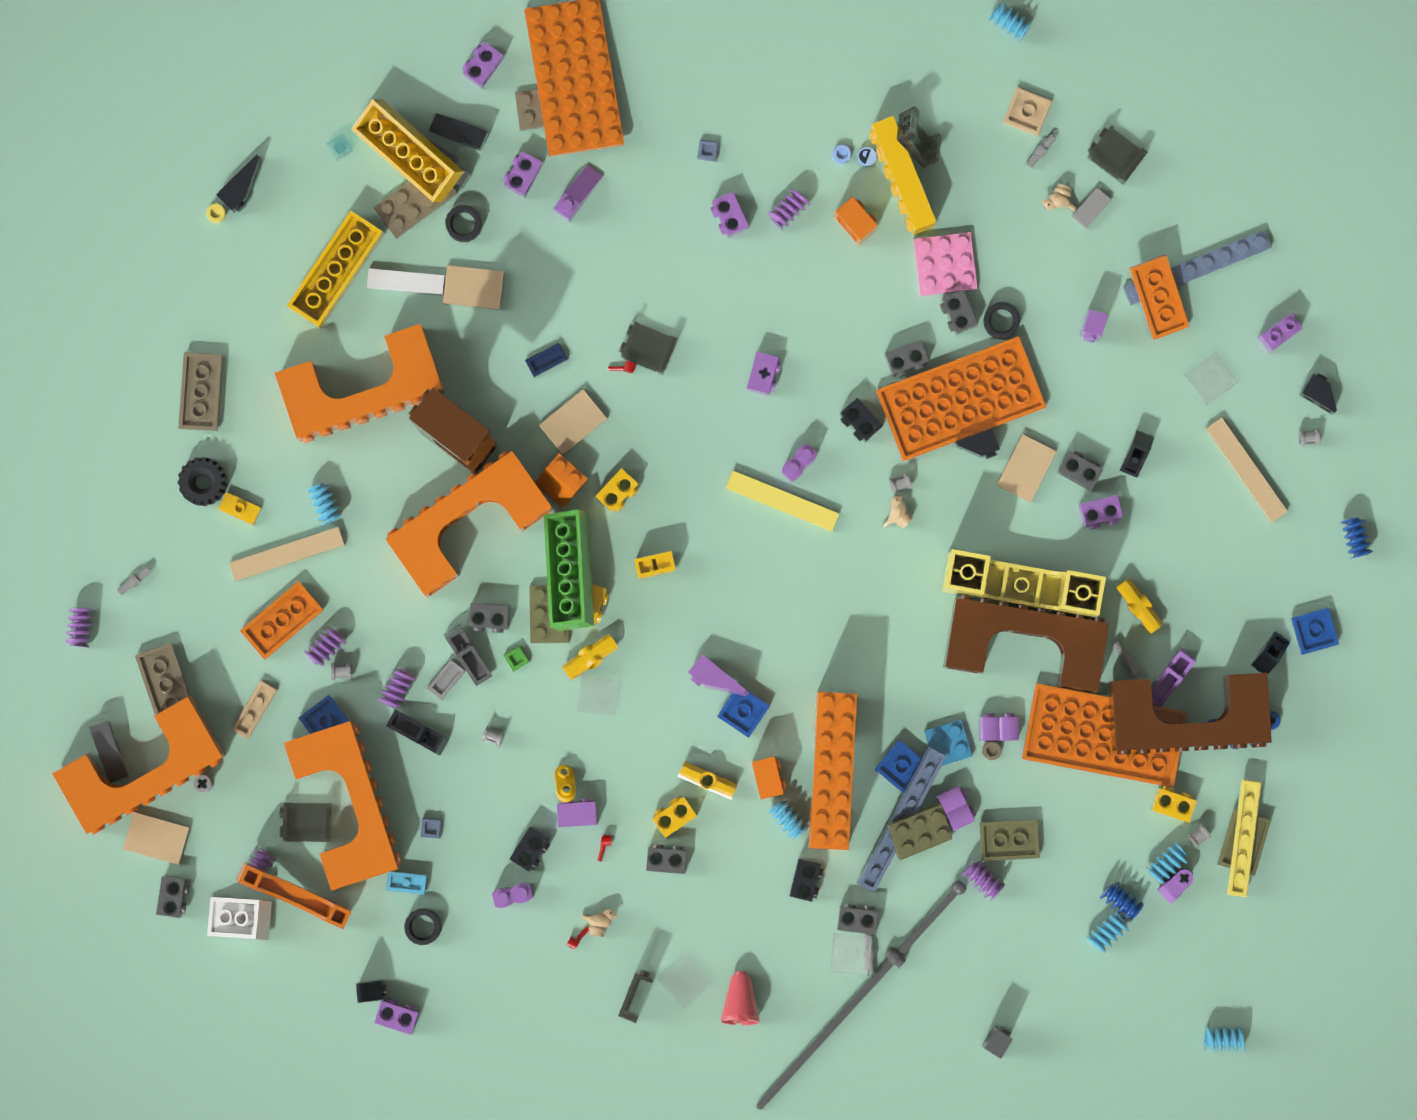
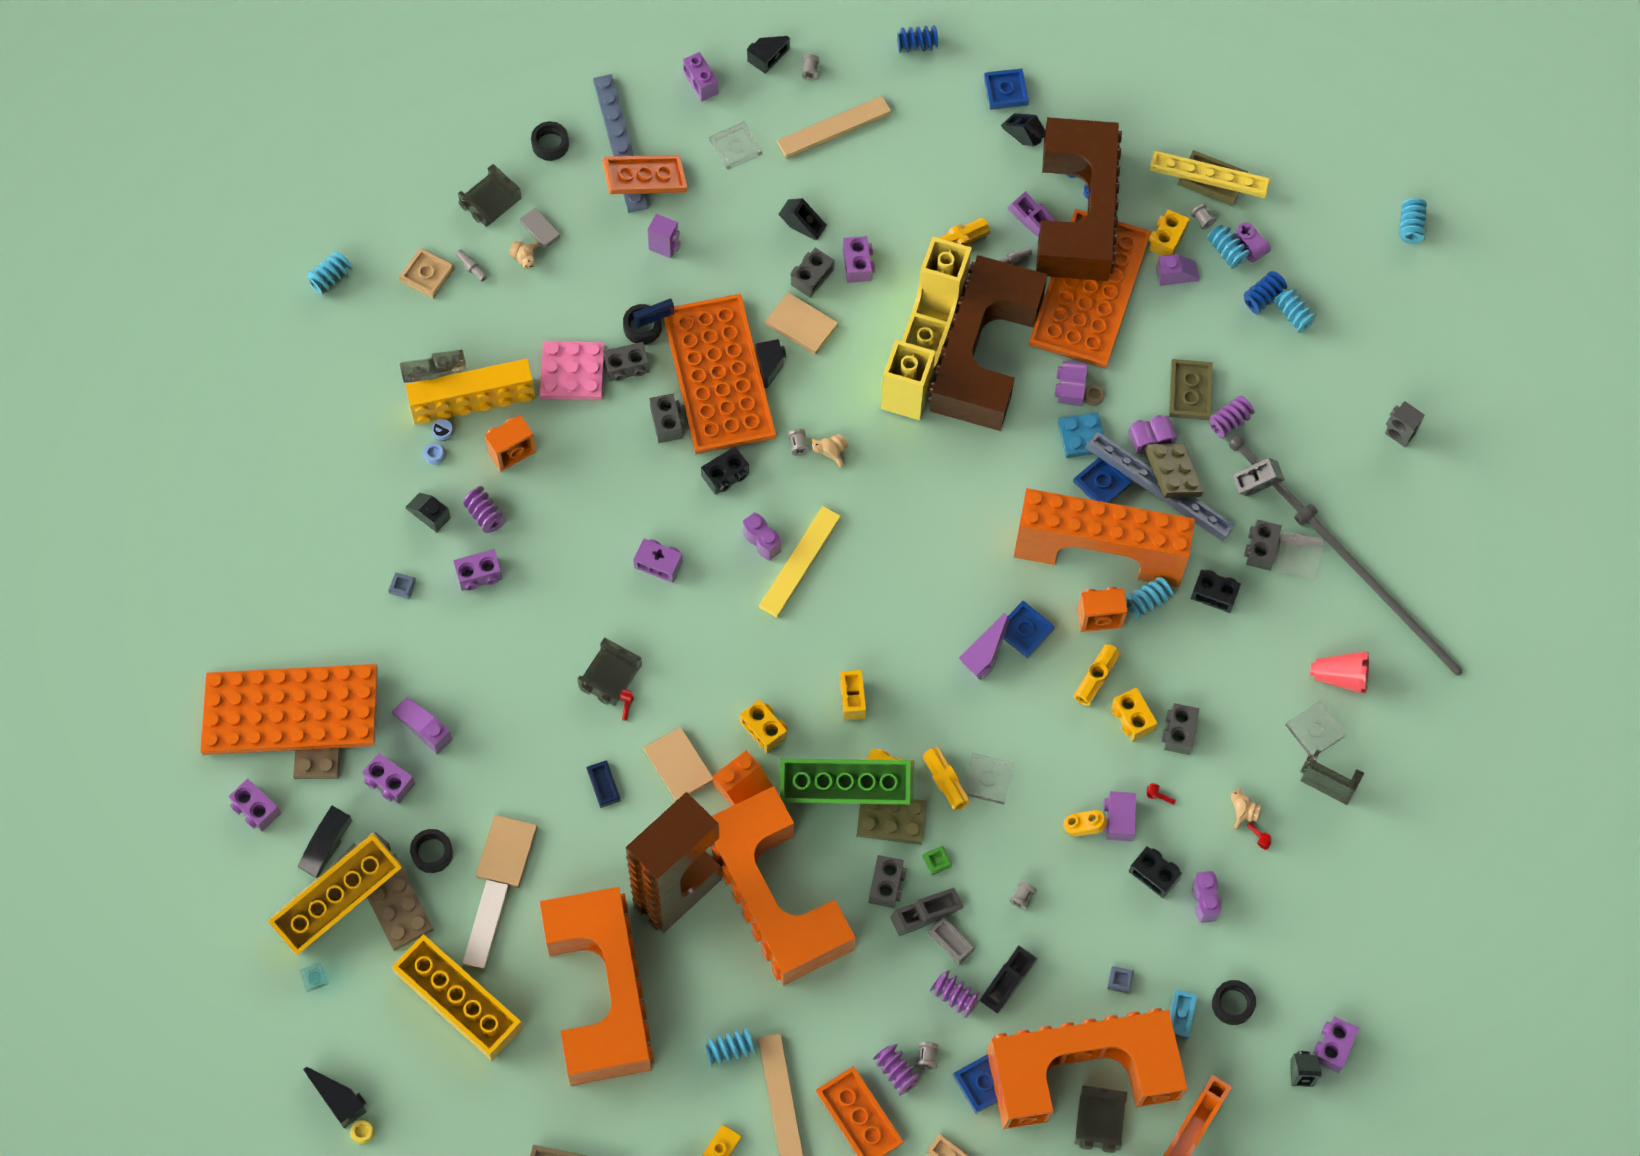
camera: 85 degrees left, 20 degrees down
(782, 159) = (429, 511): none -> black slope
(920, 909) = (1258, 477): none -> brick
(1006, 329) = (654, 313): none -> dark blue tile
(1135, 817) = (1176, 270): none -> medium lavender slope
(1201, 200) = (549, 128): none -> black tyre

